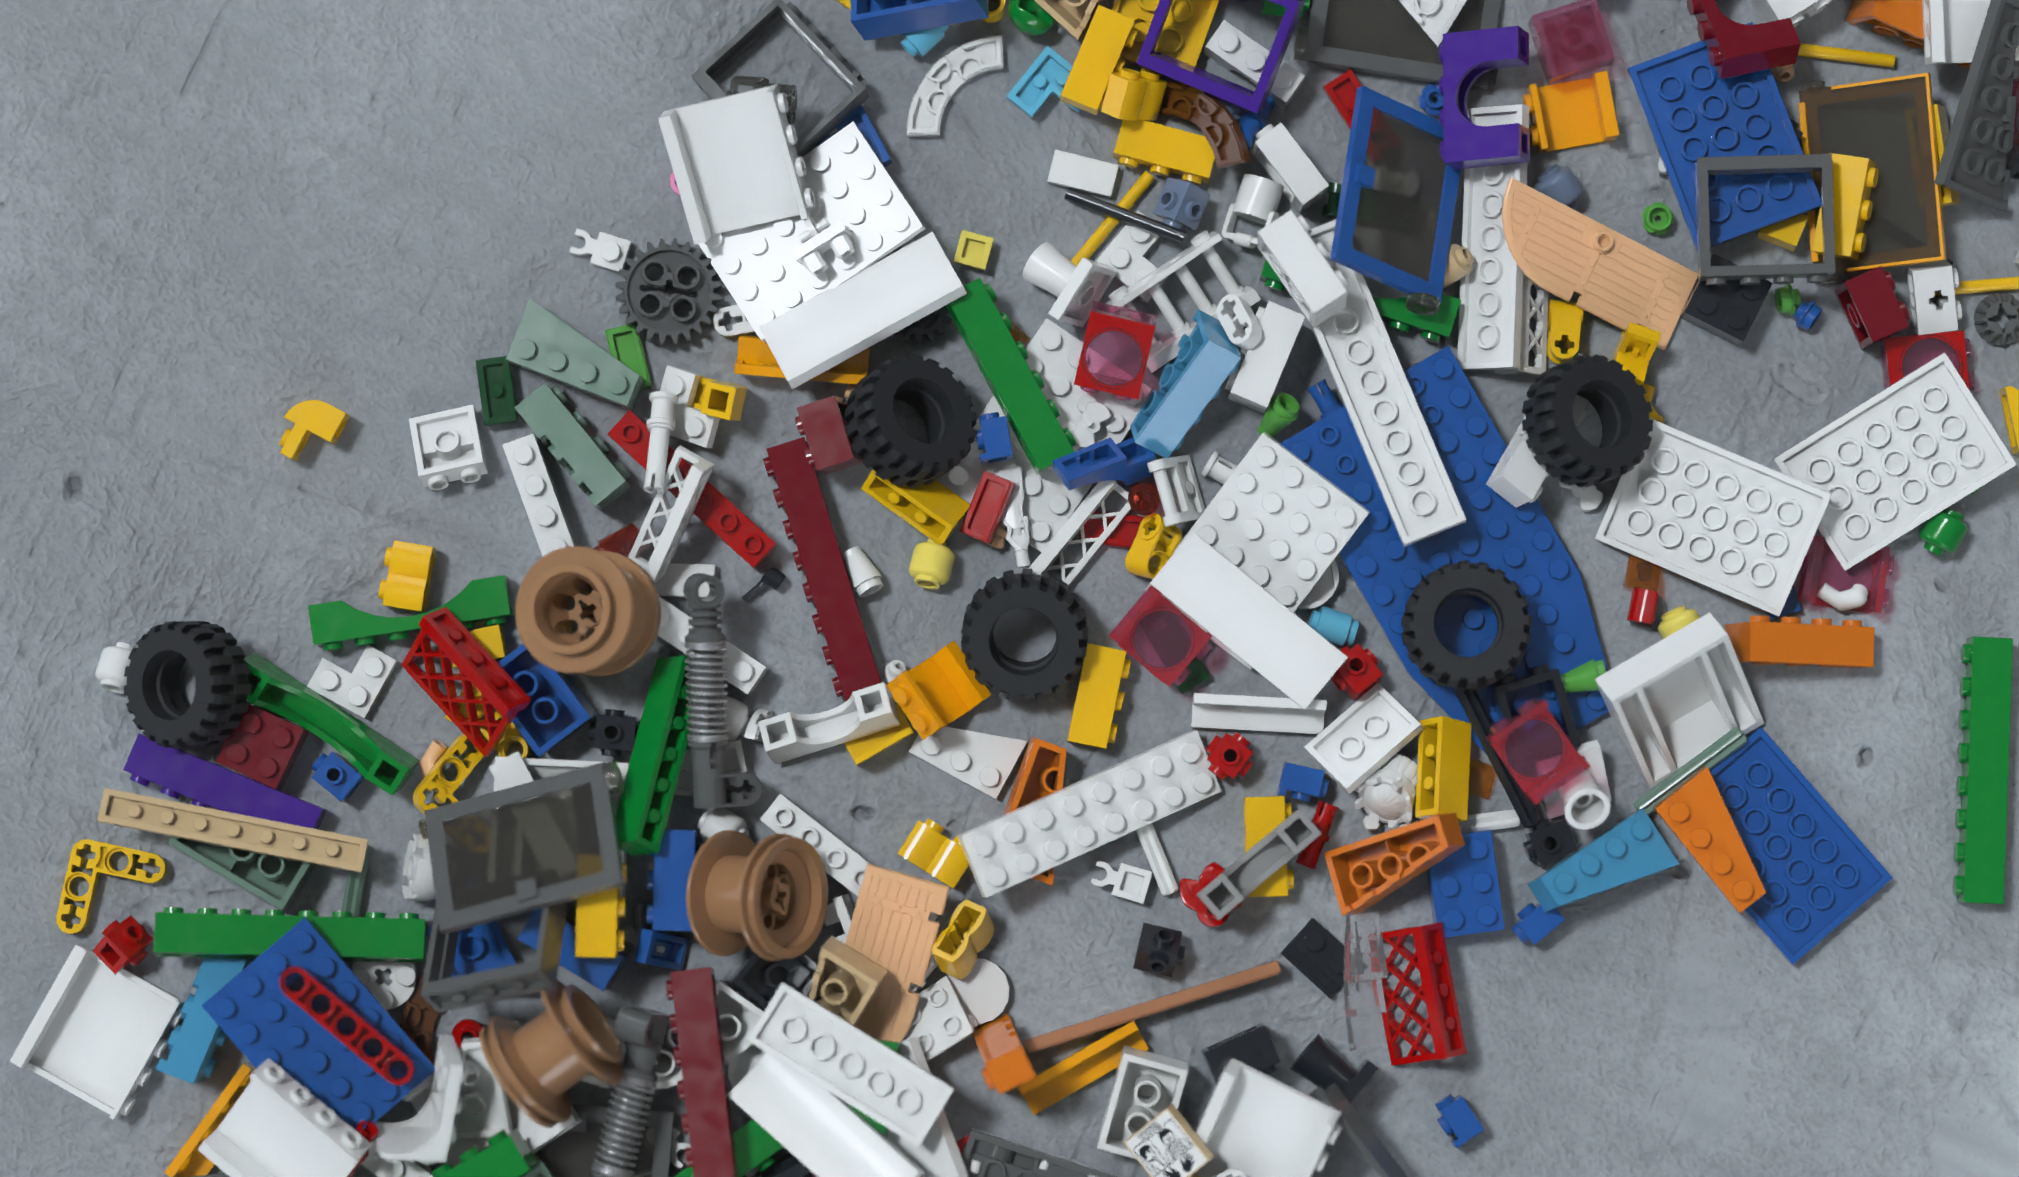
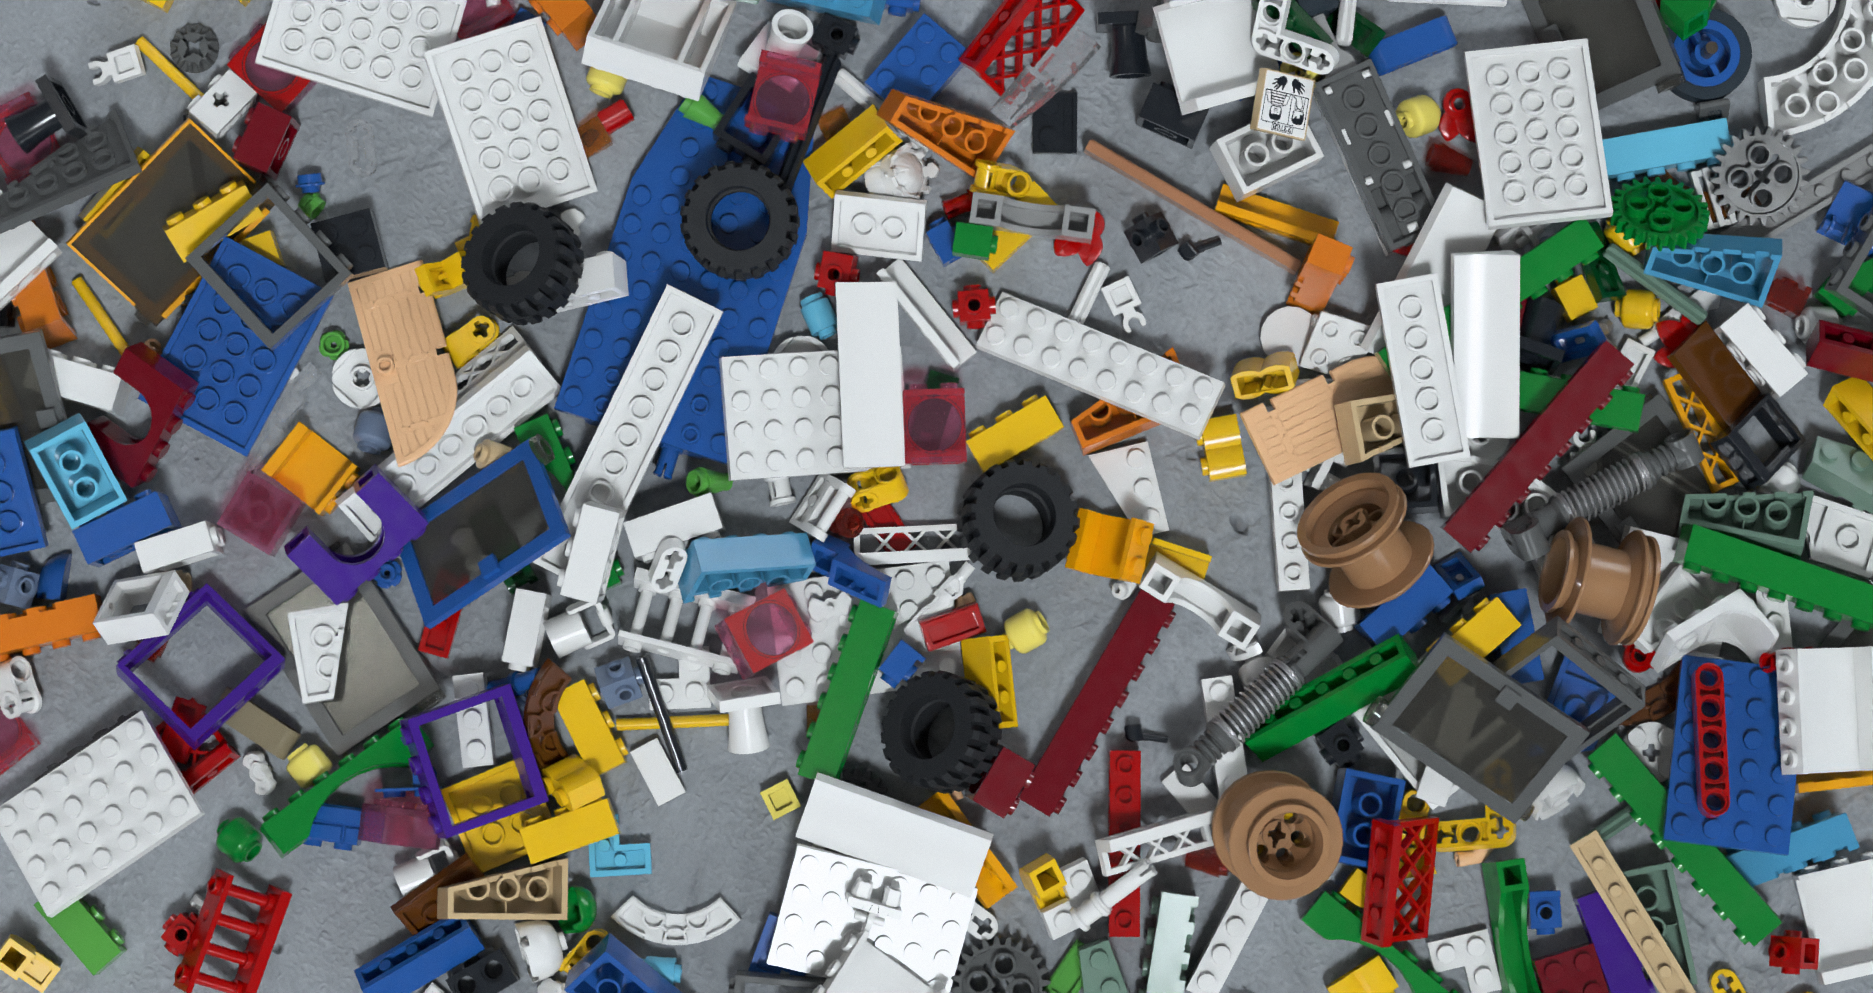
camera: 130 degrees left, 0 degrees up
(862, 573) = (1074, 674): white cone -> none
(1119, 972) = (1189, 251): none -> black hand
(1280, 800) = (974, 241): none -> green brick
(1317, 863) = (996, 178): none -> yellow piece
(1620, 202) = (344, 380): none -> white plate

